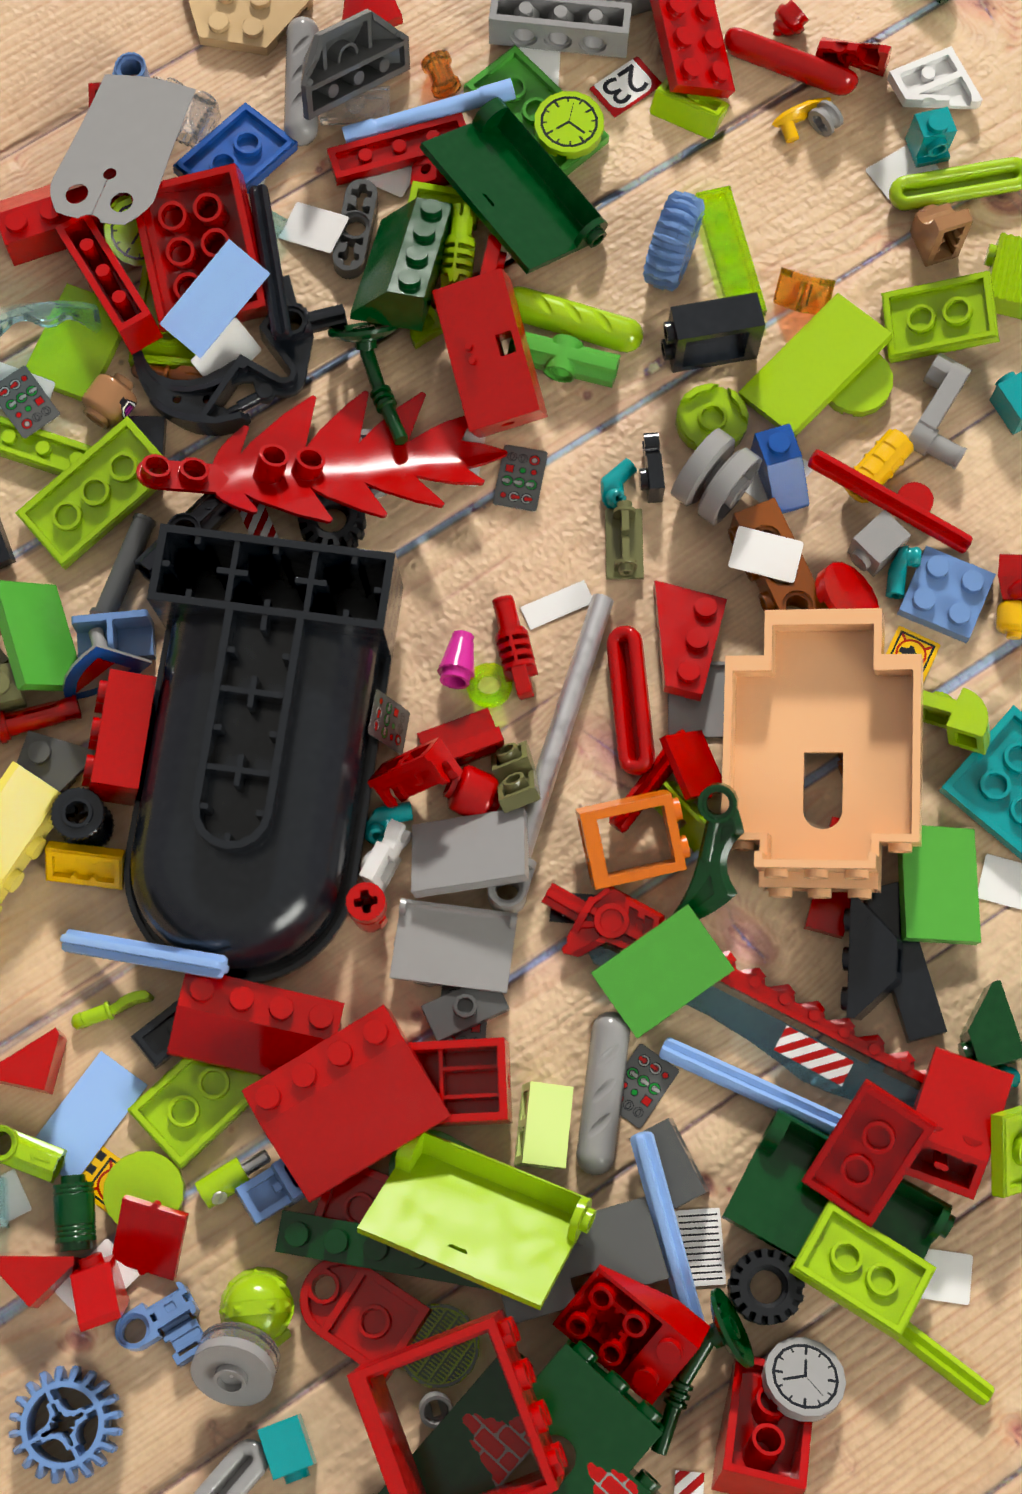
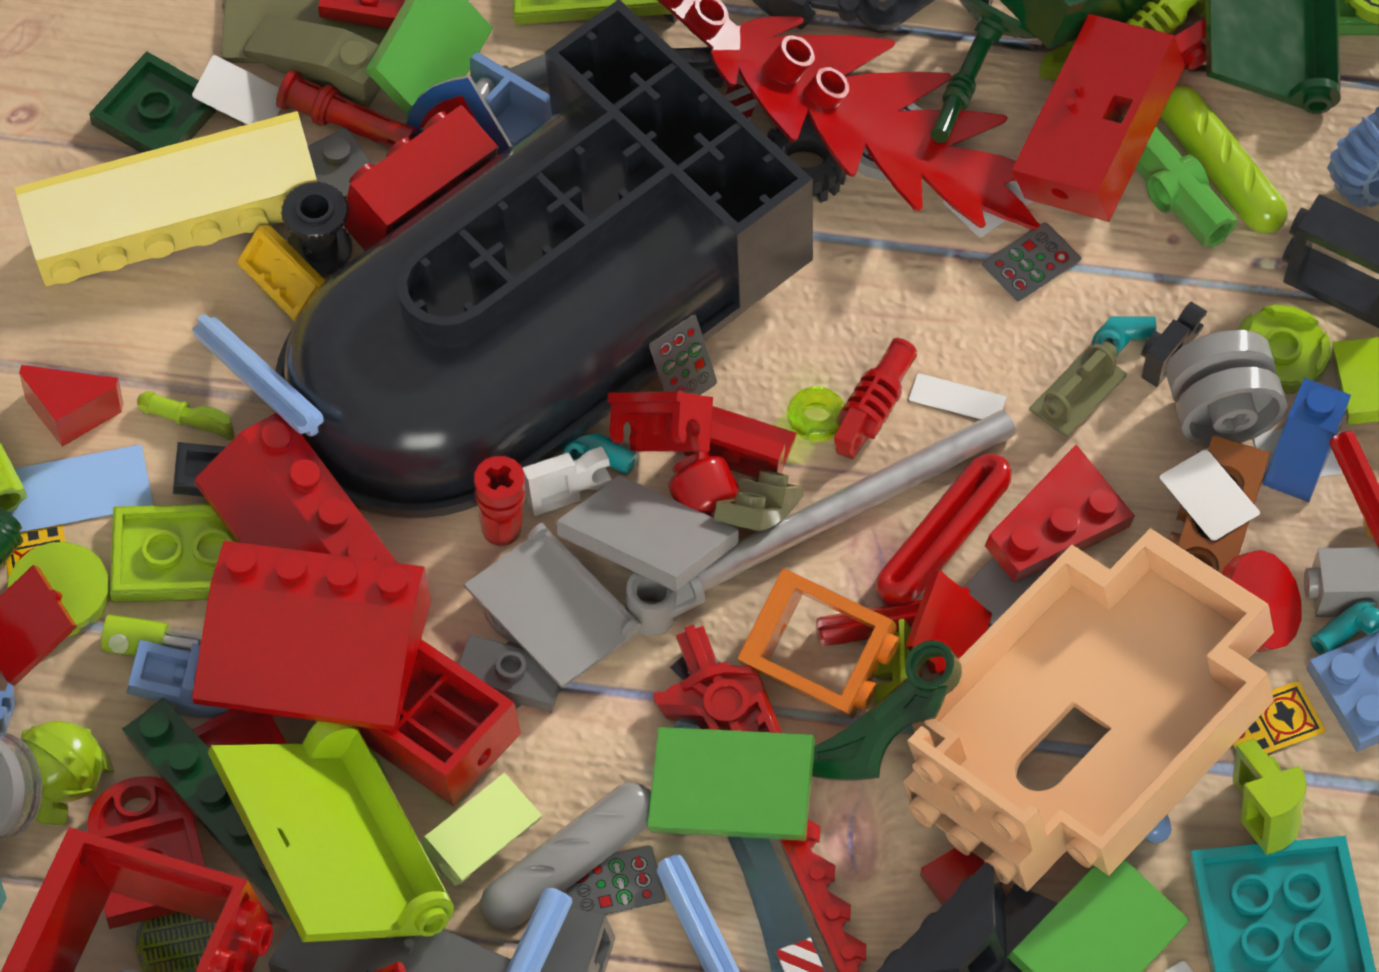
camera: 40 degrees right, 15 degrees down
(458, 661) = (806, 367): dark pink cone -> none

